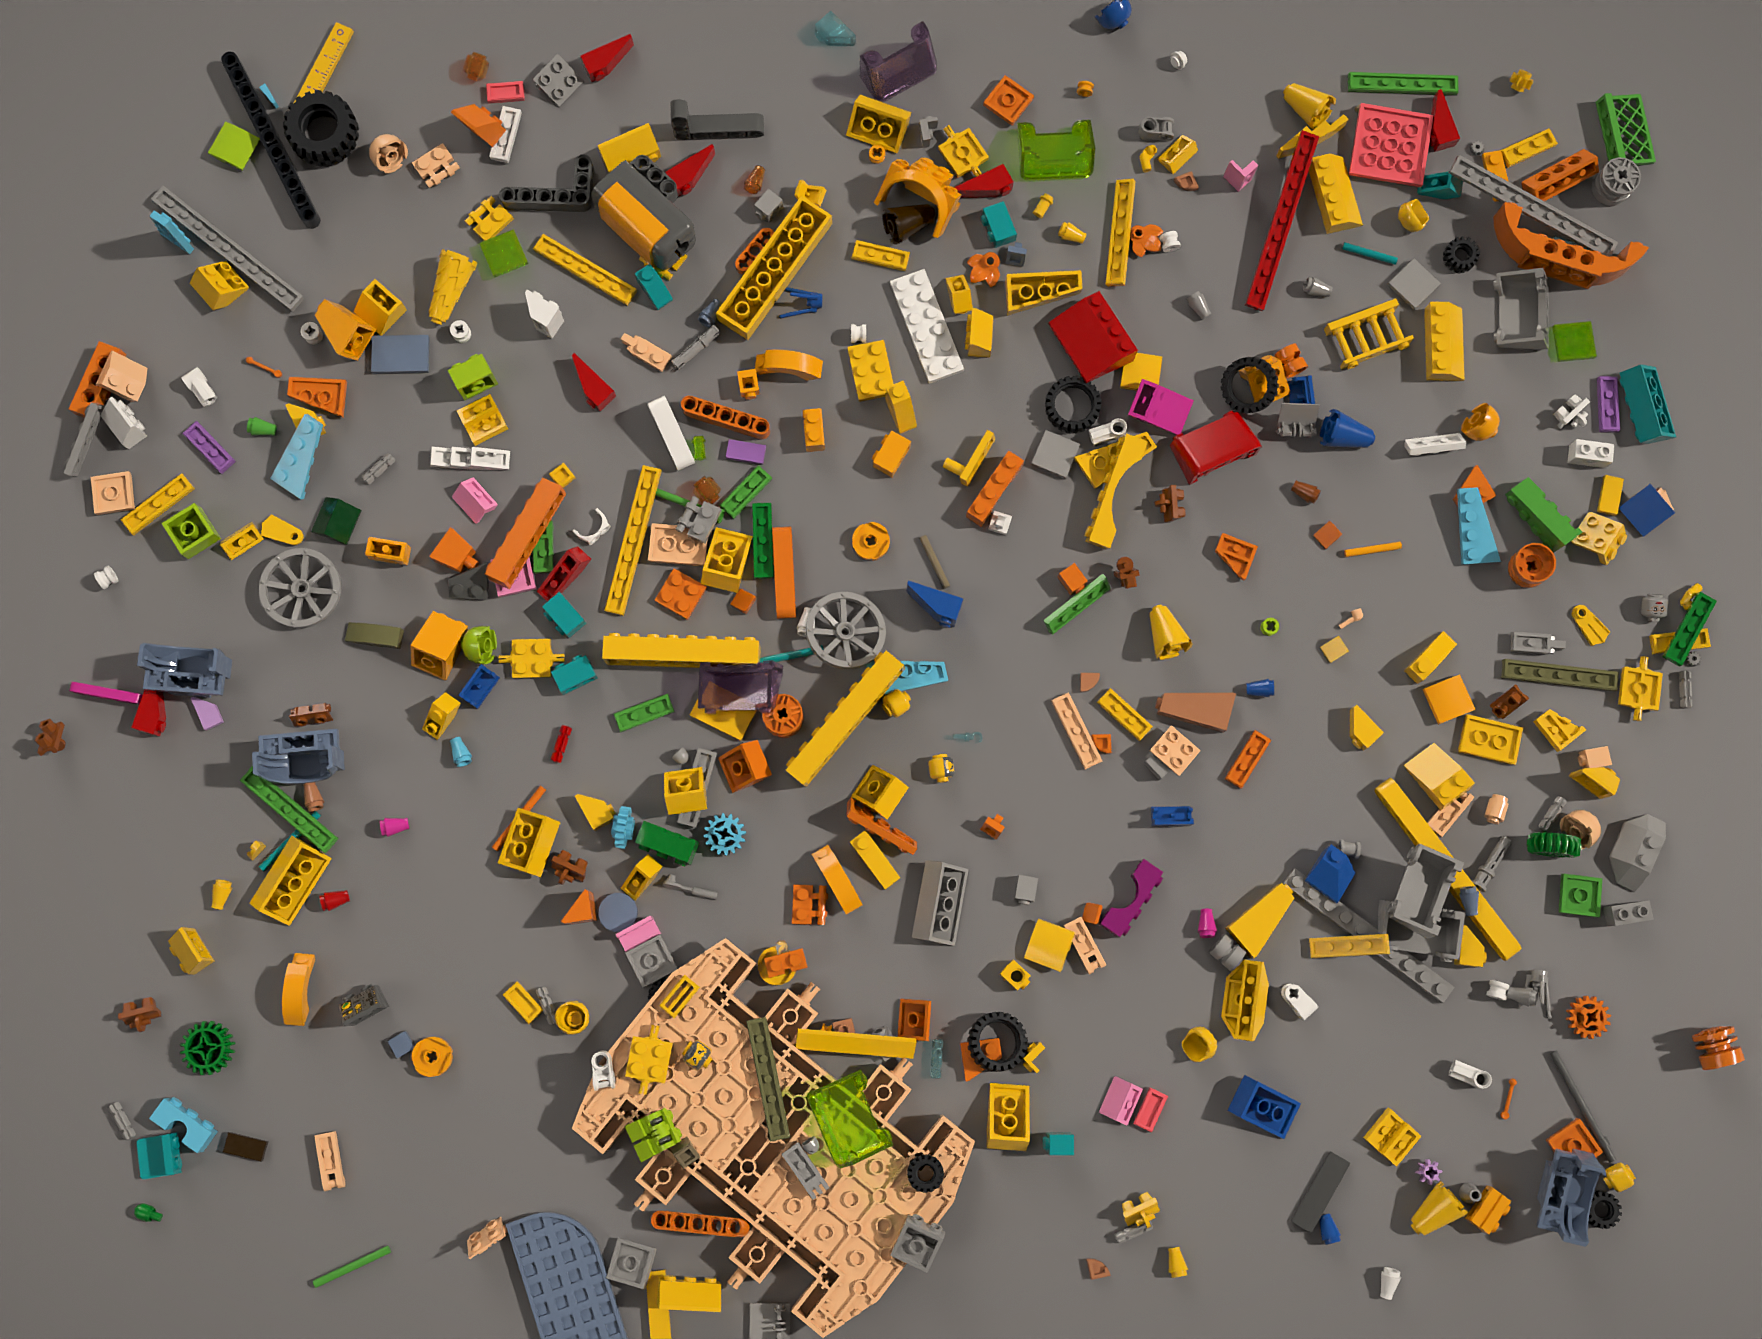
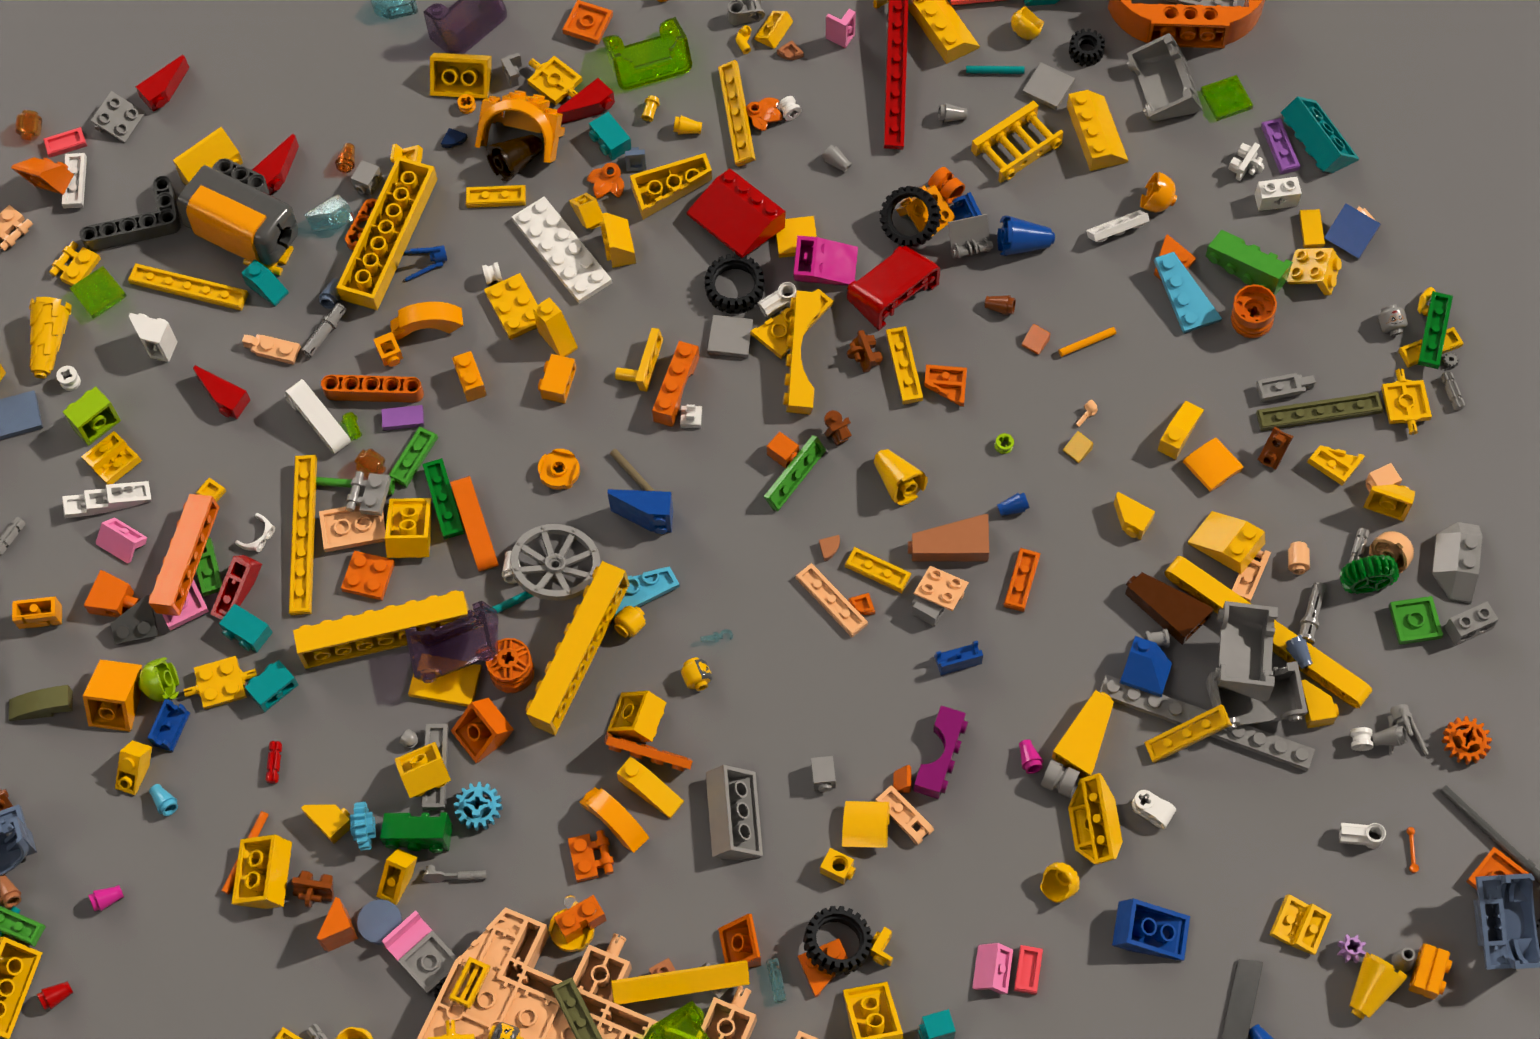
camera: 10 degrees left, 15 degrees down
(644, 713) = (357, 706): bright green tile -> none
(713, 126) = (289, 119): dark grey beam -> none
(727, 235) = (330, 215): none -> clear light blue slope
(743, 601) = (438, 564): orange slope -> none
(856, 186) = (453, 138): none -> dark blue tile
(993, 827) = (769, 719): orange tile -> none
(1202, 527) = (904, 365): none -> yellow plate
(1369, 824) = (1168, 606): none -> reddish brown slope
(1490, 739) = (1269, 493): yellow tile -> none
(1590, 625) = (1334, 356): yellow piece -> none

